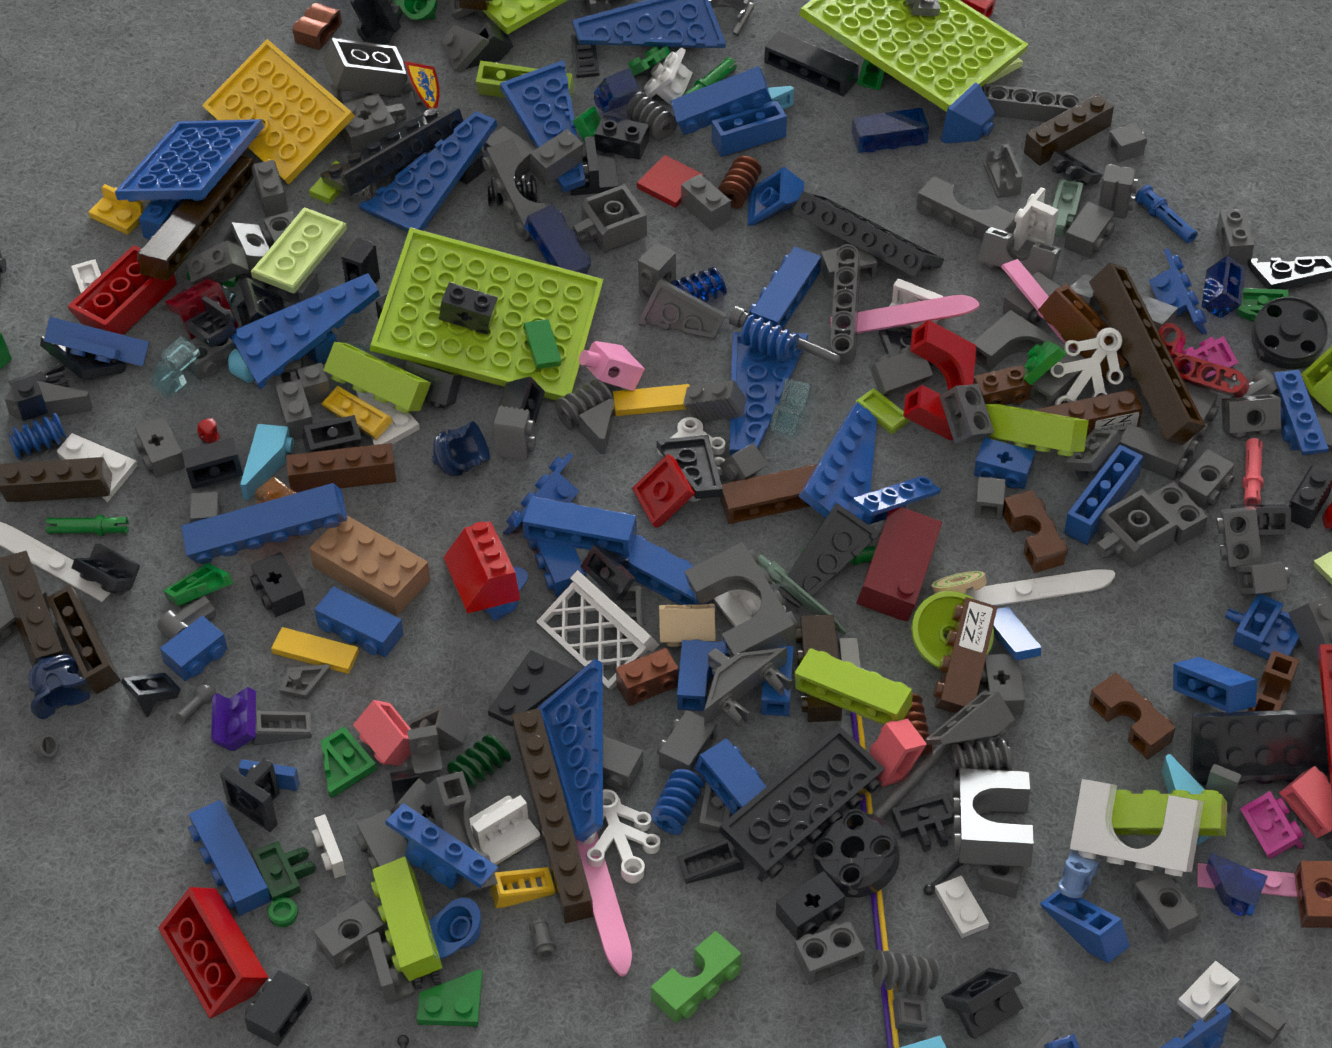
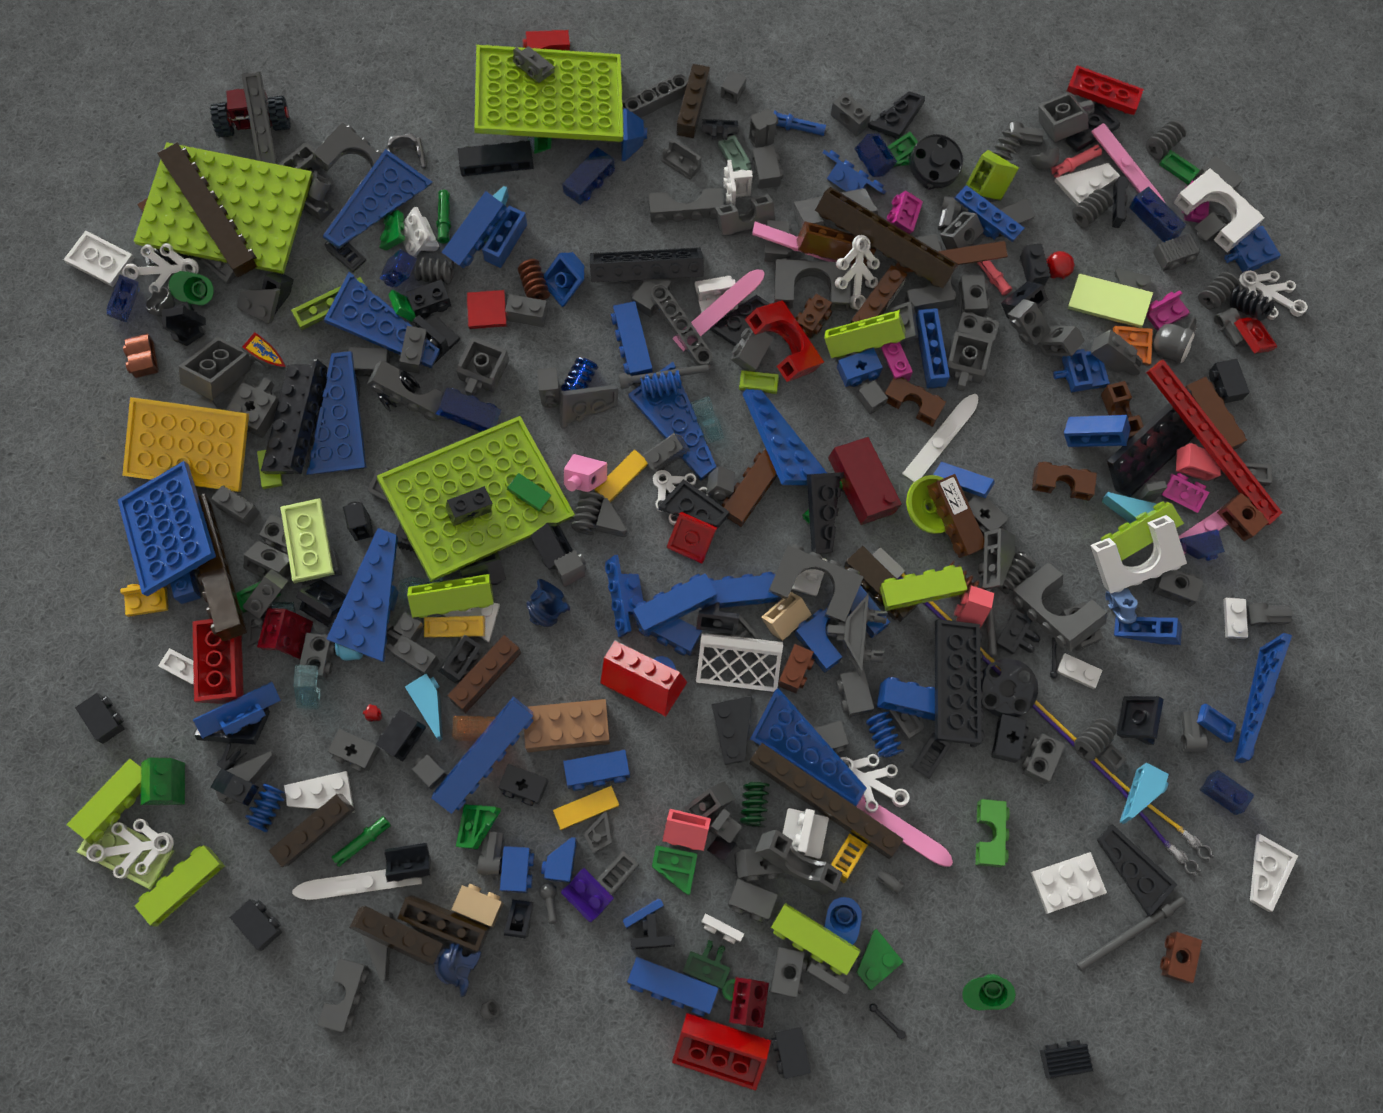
camera: 45 degrees left, 20 degrees up
(128, 650) = (478, 905): none -> tan brick
(213, 324) = (309, 642): black bracket -> none
(242, 671) = (560, 862): none -> blue slope
(281, 920) = (749, 1002): none -> dark red brick
(438, 851) = (800, 884): blue bracket -> none
(780, 577) = (816, 546): sand green piece -> none
(879, 502) = (830, 441): blue bracket -> none
(960, 582) = (909, 460): tan tile -> none
(966, 414) = (821, 353): dark grey brick -> none
(1041, 359) = (829, 283): green wing -> none
(1050, 479) = (897, 360): none -> dark pink bracket
(1200, 367) = (917, 222): red beam -> none
(1237, 433) = (971, 254): none -> reddish brown piece

